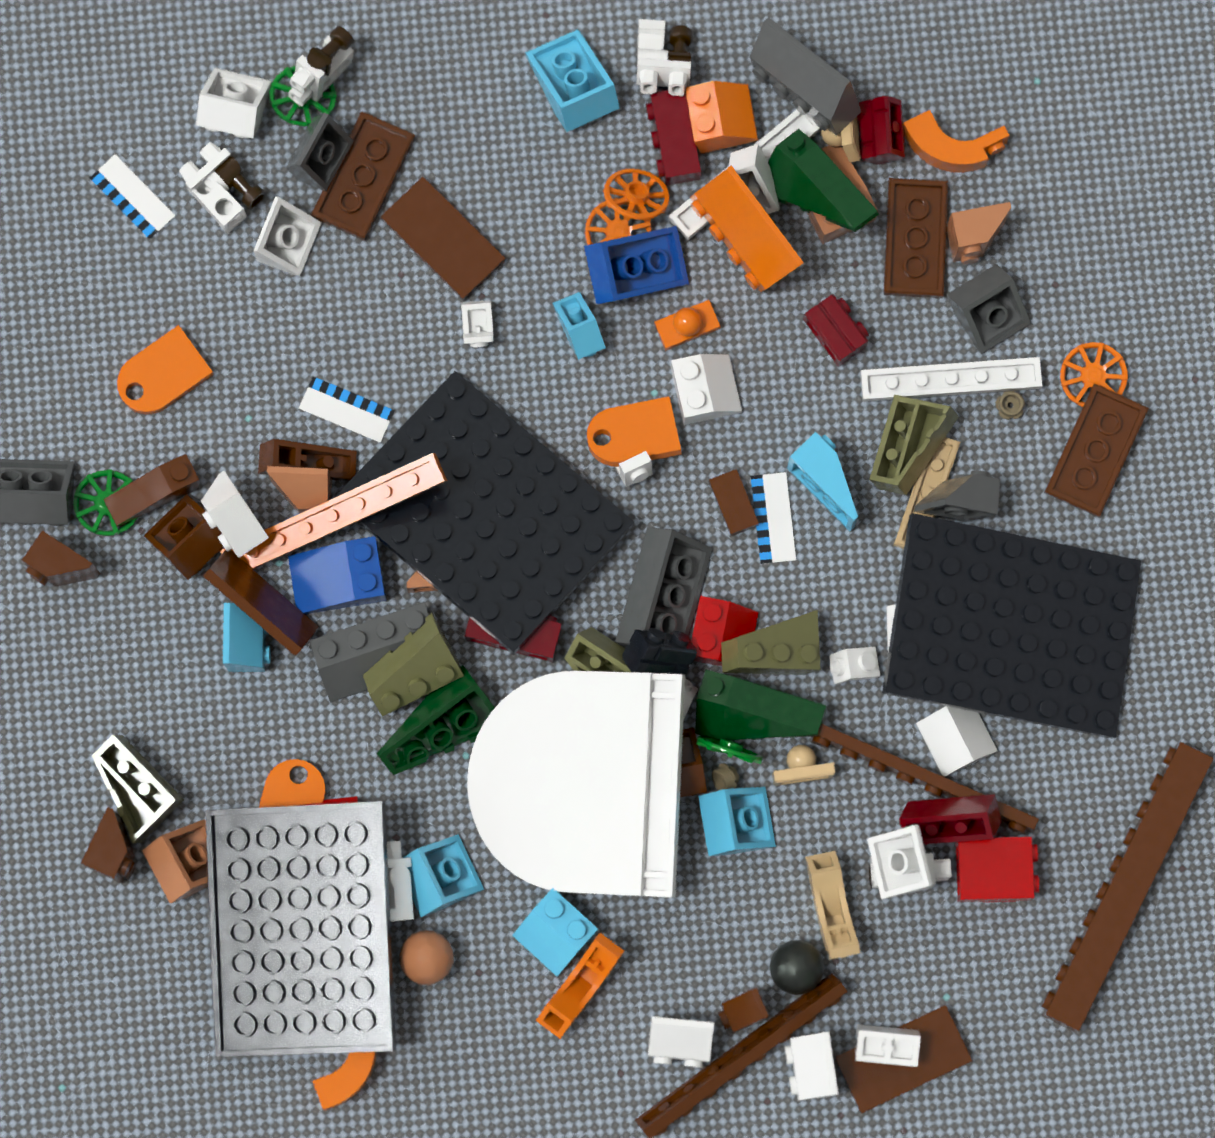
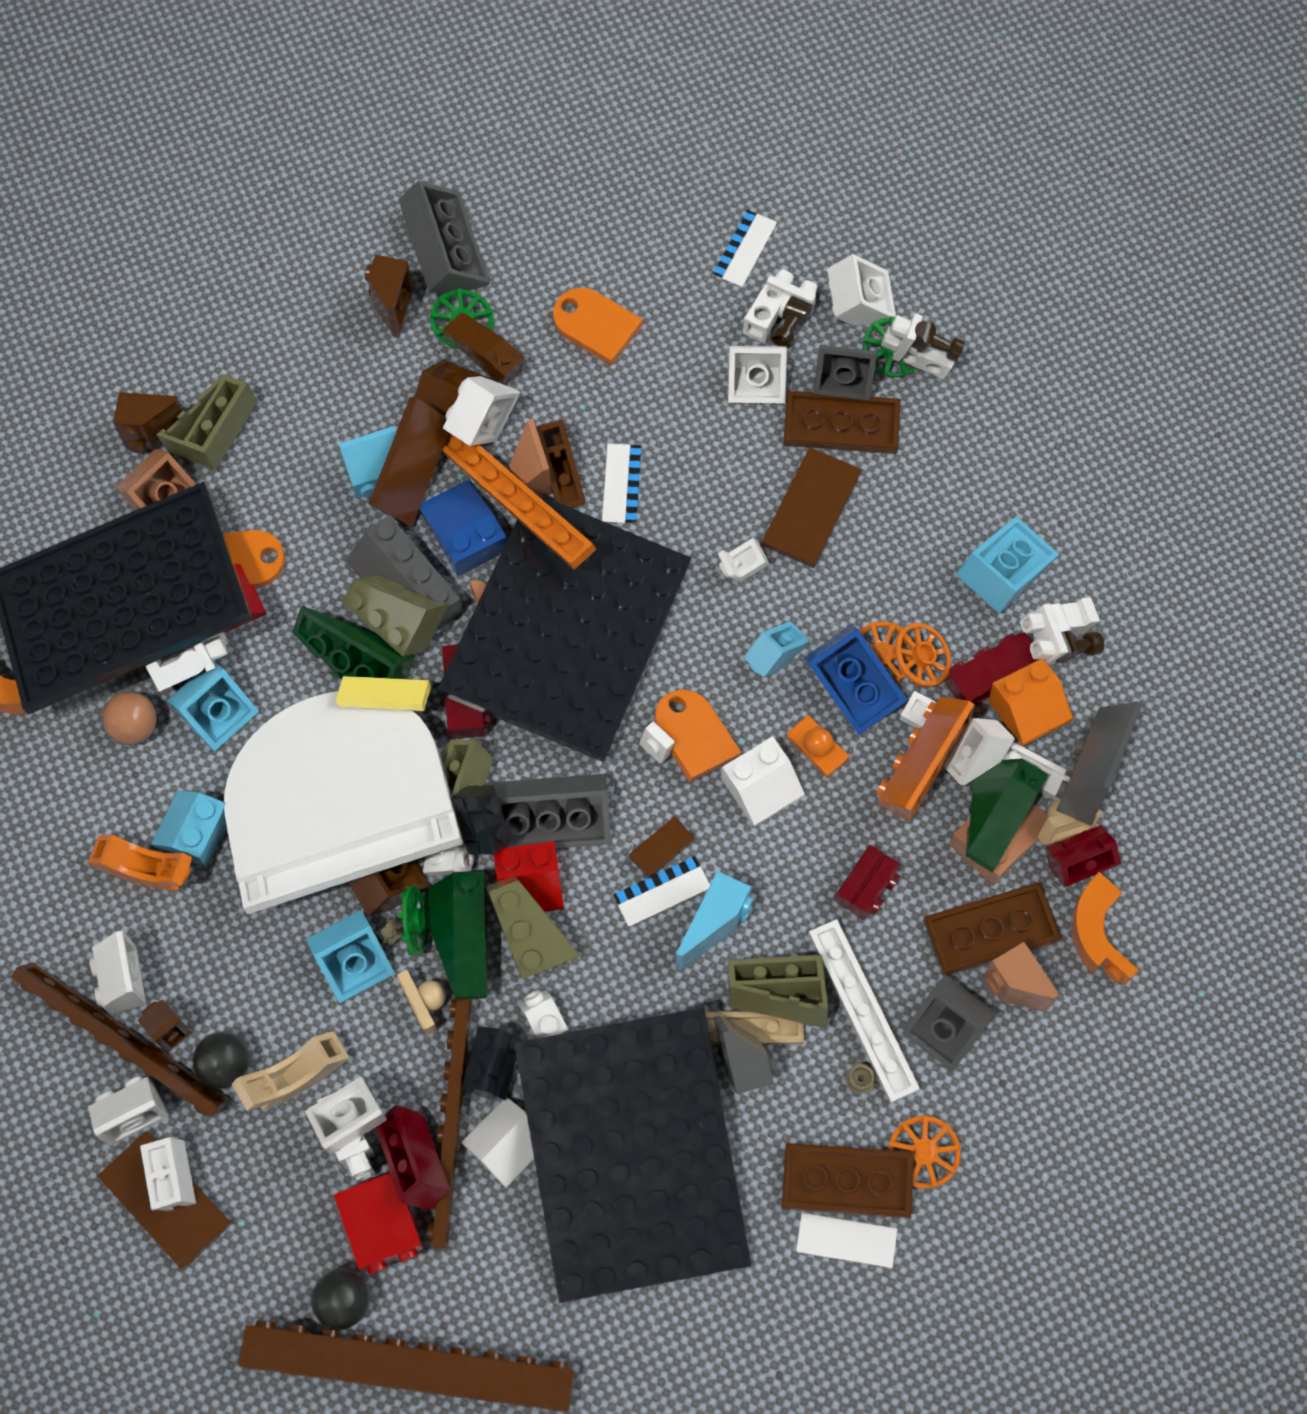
camera: 70 degrees right, 10 degrees down
(497, 705) = (383, 693): none -> light yellow tile
(885, 724) = (491, 1063): none -> black brick
(1051, 924) = (340, 1299): none -> pearl dark grey piece
(1144, 472) = (846, 1240): none -> white sticker

